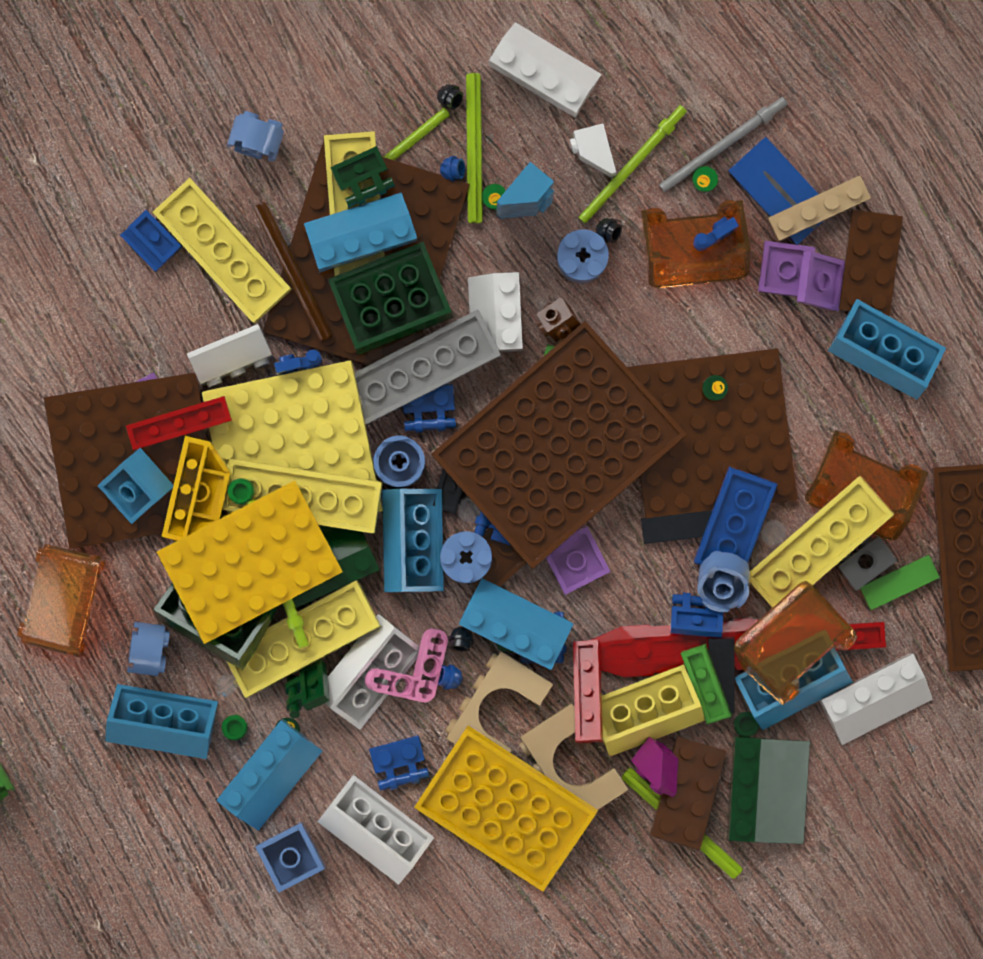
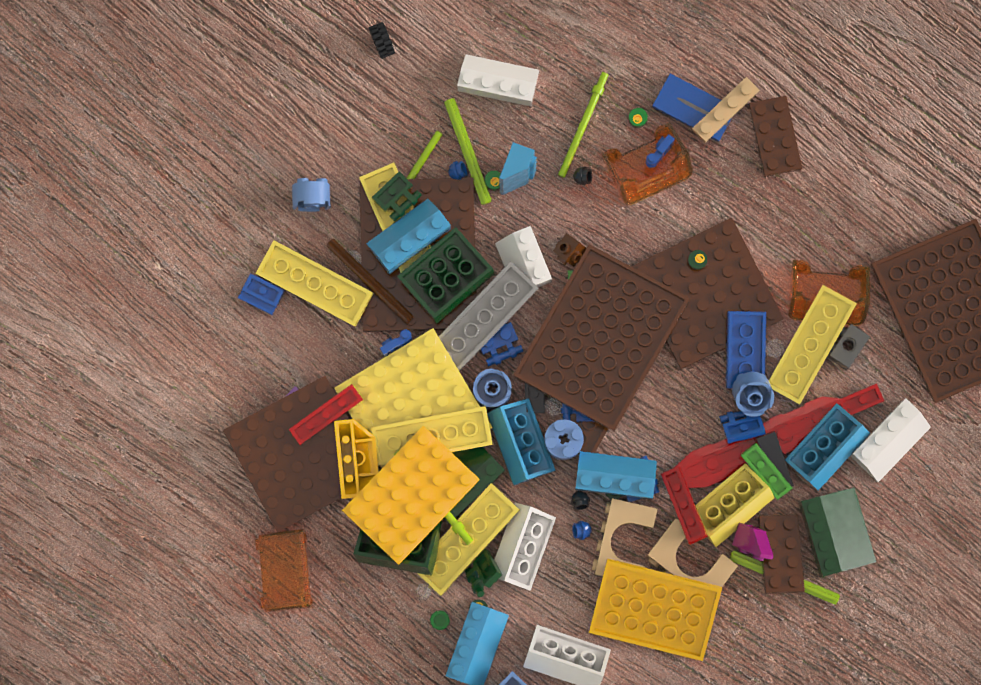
camera: 10 degrees left, 5 degrees down
(135, 485) = (310, 470): dark azure slope -> none
(147, 649) = (358, 584): medium blue brick -> none
(161, 721) = (385, 634): dark azure slope -> none
(230, 356) = (346, 355): white slope -> none
(241, 491) = (387, 447): green tile -> none
(396, 755) = (562, 600): blue plate -> none
(414, 682) = (558, 541): bright pink beam -> none
(450, 96) = (438, 121): black plate -> none
(577, 561) = (643, 416): medium lavender plate -> none
(593, 266) = (563, 207): medium blue brick -> none
(594, 149) = (552, 122): white slope -> none
(674, 527) = (703, 368): black tile -> none
(745, 724) = (804, 490): dark green tile -> none
(763, 116) = (663, 59): light grey bar -> none
(781, 268) = (718, 160): medium lavender plate -> none
(792, 641) = (816, 418): clear orange windscreen -> none
(821, 281) = (745, 159): medium lavender plate -> none
(887, 349) = (809, 191): dark azure slope -> none
(899, 582) = (876, 352): bright green tile -> none

